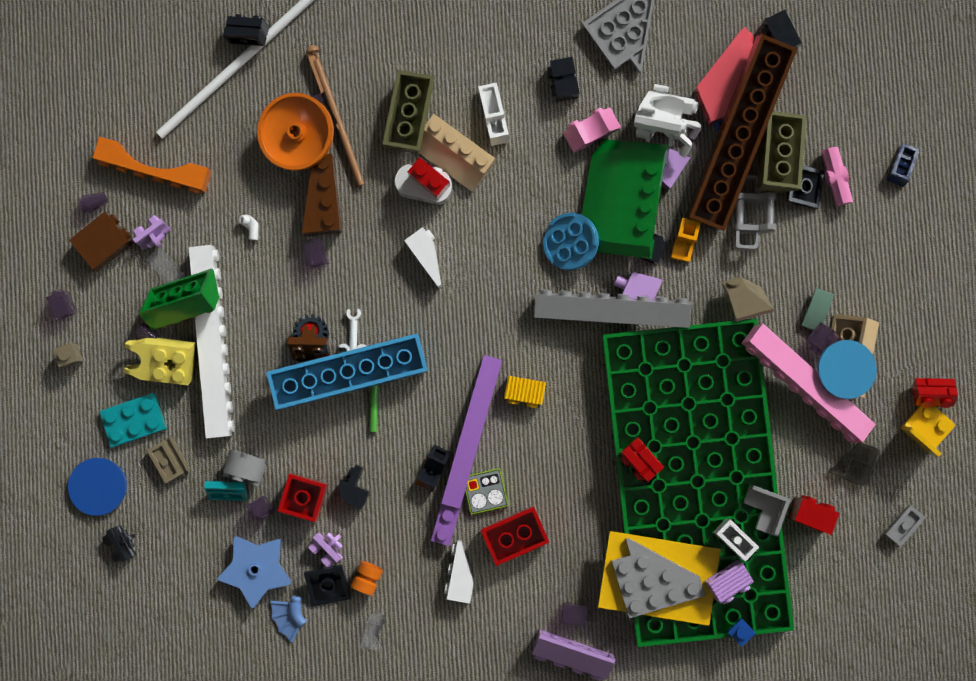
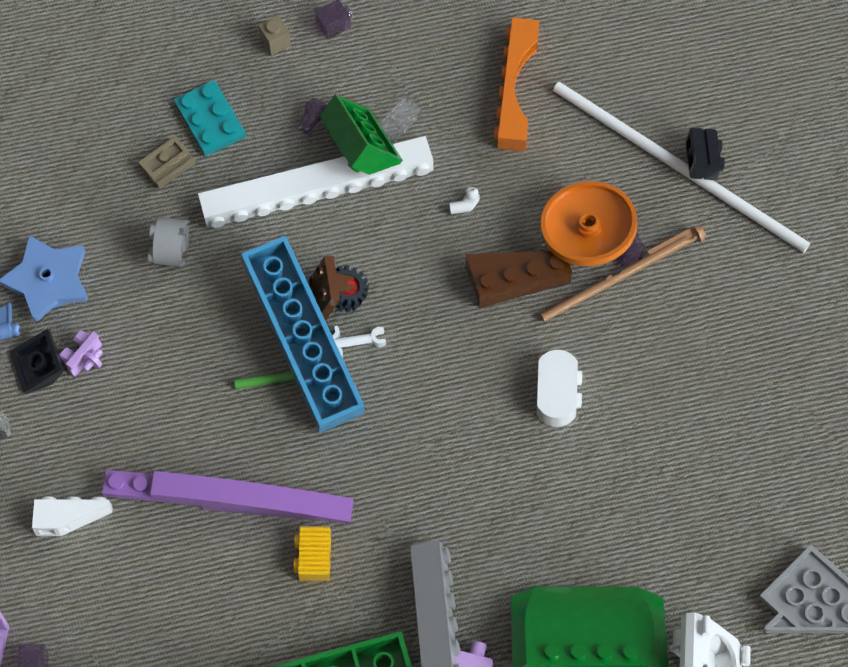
camera: 75 degrees right, 20 degrees down
(92, 201) = (461, 30): clear purple cone -> none
(97, 486) = (125, 94): blue tile -> none
(101, 241) = (416, 47): reddish brown brick -> none
(122, 543) = (61, 128): black hips -> none
(152, 235) = (434, 98): lavender hips -> none
(157, 363) = (284, 133): light yellow brick -> none
(226, 491) = (137, 228): teal plate -> none
(260, 508) = (122, 270): clear purple brick -> none
(303, 497) = (141, 314): red brick -> none
(315, 252) = (446, 279): clear purple brick -> none
(350, 492) = (156, 368): black brick -> none
(366, 579) = (55, 404): orange wheel -> none
(408, 111) = (644, 348): olive slope -> none
(424, 250) = (468, 406): white slope -> none
(428, 178) = (562, 384): red brick -> none
(433, 468) = (198, 461): black slope -> none
(455, 153) = (605, 417): tan slope -> none
(486, 491) = (178, 530): tile -> none
(494, 114) = (665, 457): white slope -> none
(514, 535) = (125, 569): red brick -> none
(564, 80) = (731, 535): black piece -> none
(570, 241) = (518, 576): dark azure tile -> none
(586, 132) = (679, 587): bright pink brick -> none

